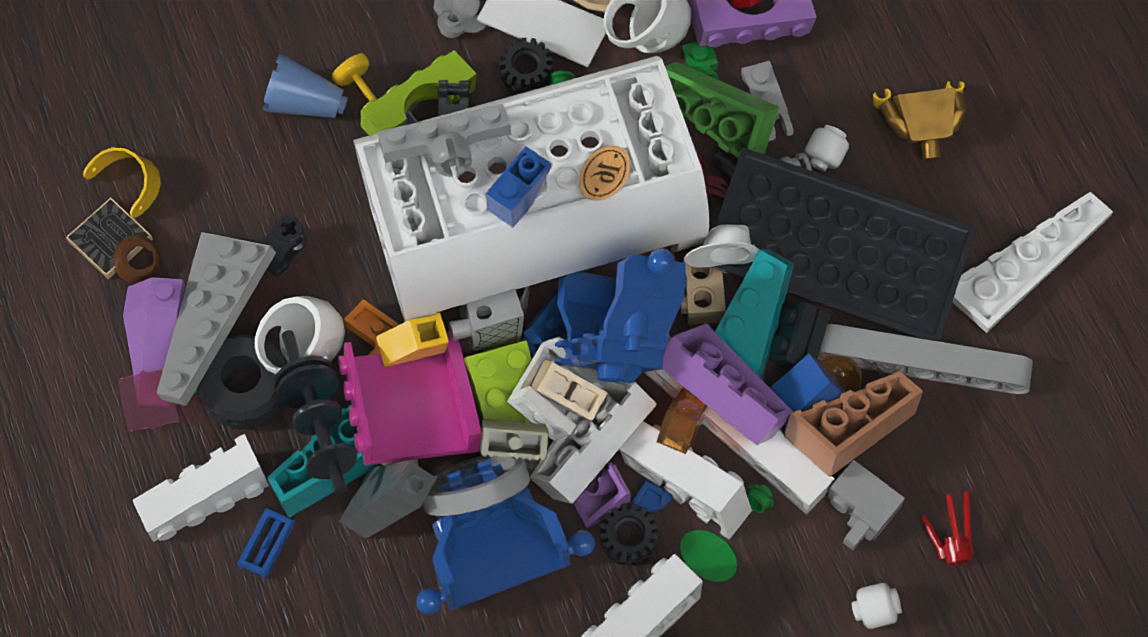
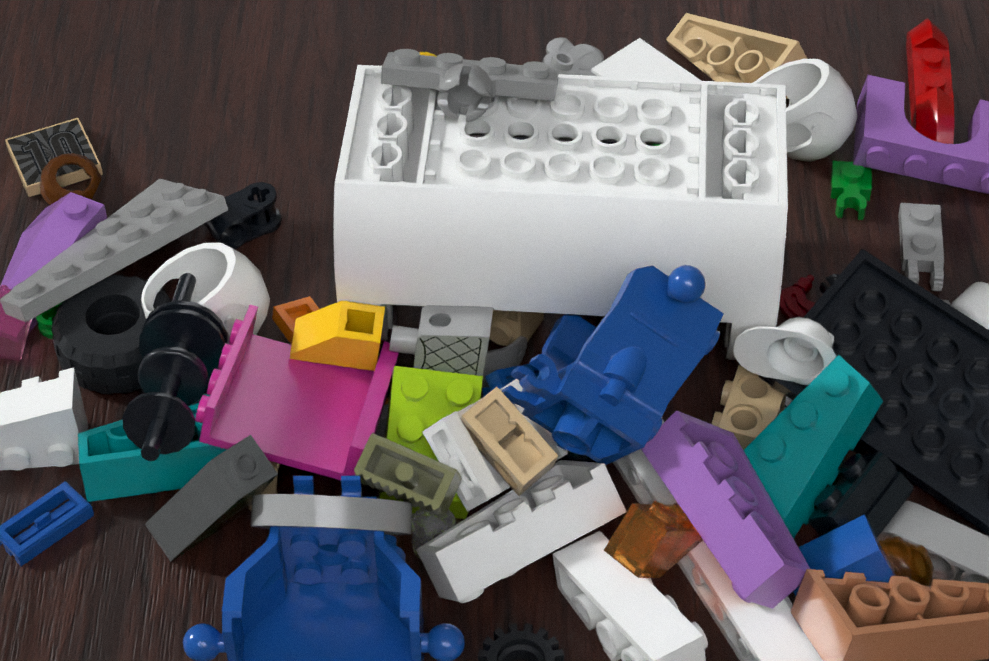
camera: 20 degrees right, 20 degrees down
(151, 180) = (129, 116): yellow piece -> none
(302, 92) = (331, 65): medium blue cone -> none
(518, 186) = (531, 146): blue slope -> none
(602, 495) = (511, 604): medium lavender slope -> none
(604, 173) = (655, 174): clear orange sticker -> none
(651, 497) = (576, 638): blue tile -> none
(722, 110) = (848, 222): bright green wedge -> none

